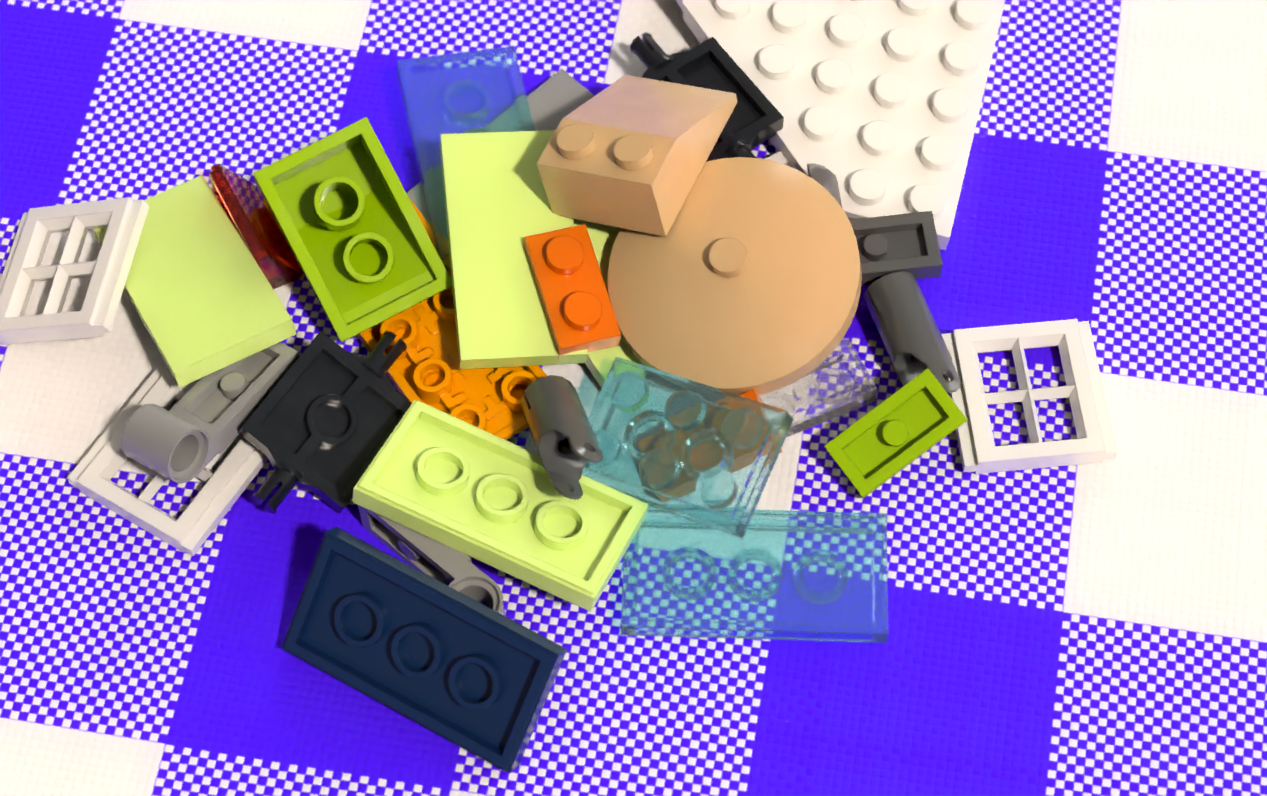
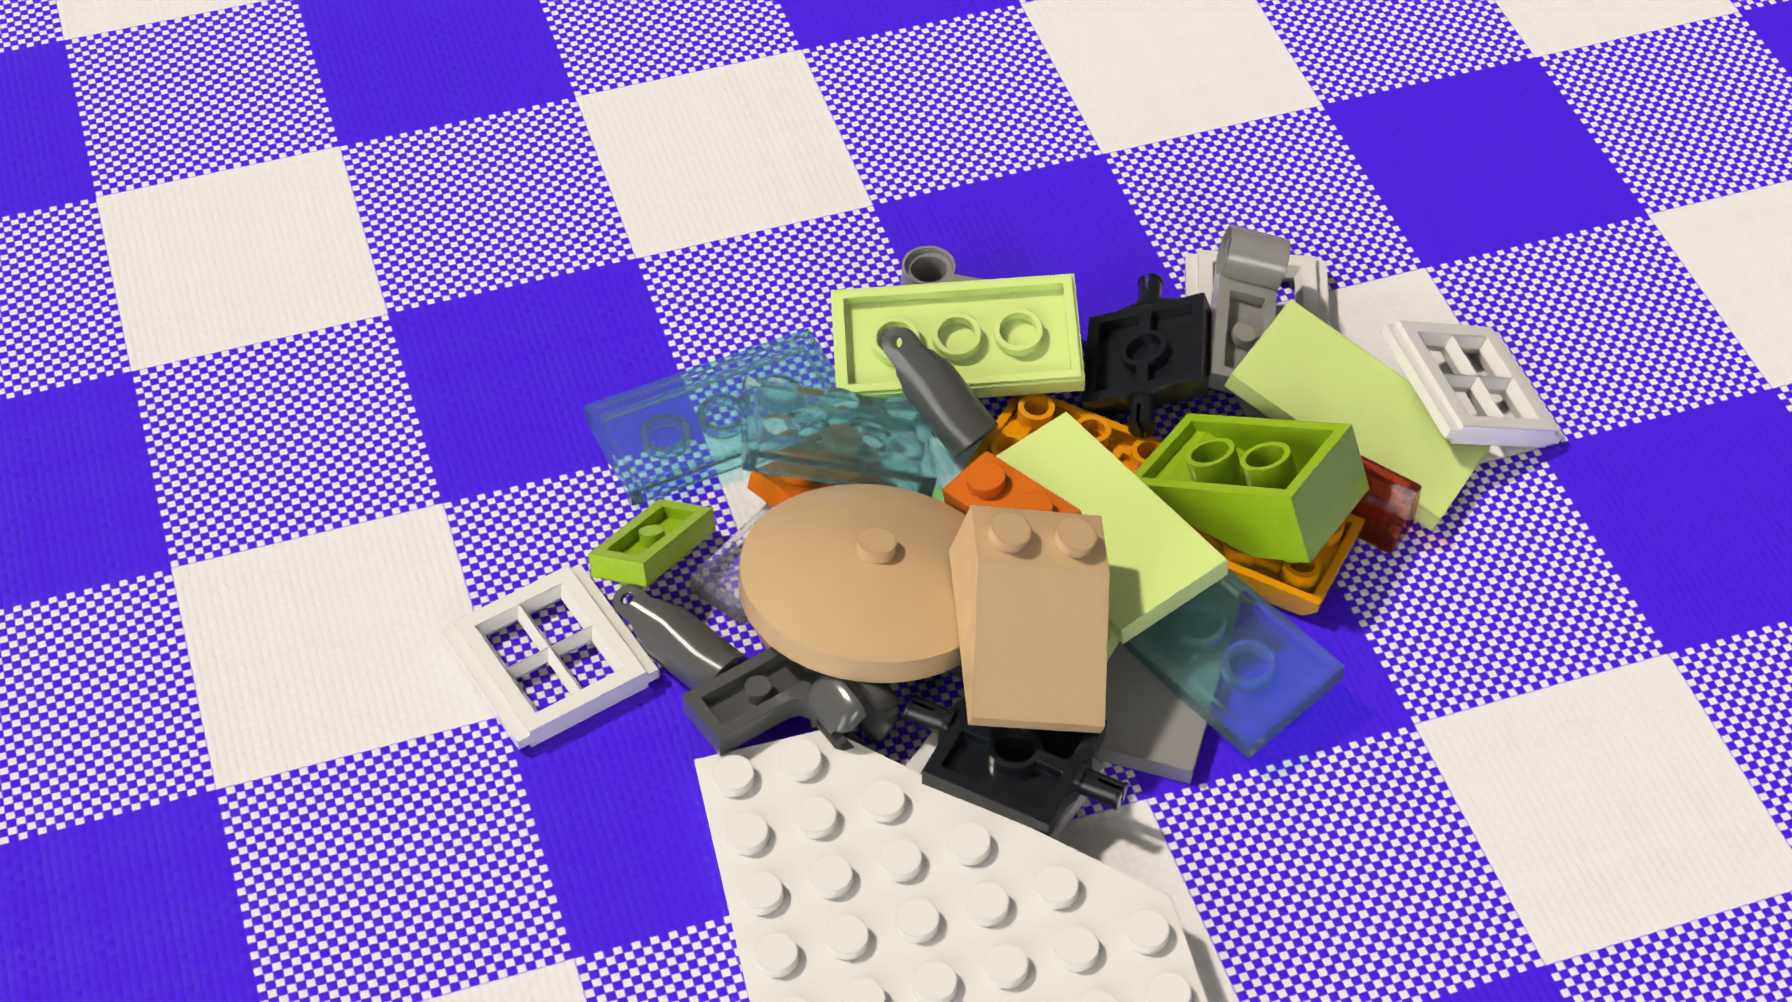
camera: 150 degrees right, 10 degrees down
(423, 649) = (948, 232): dark blue tile -> none

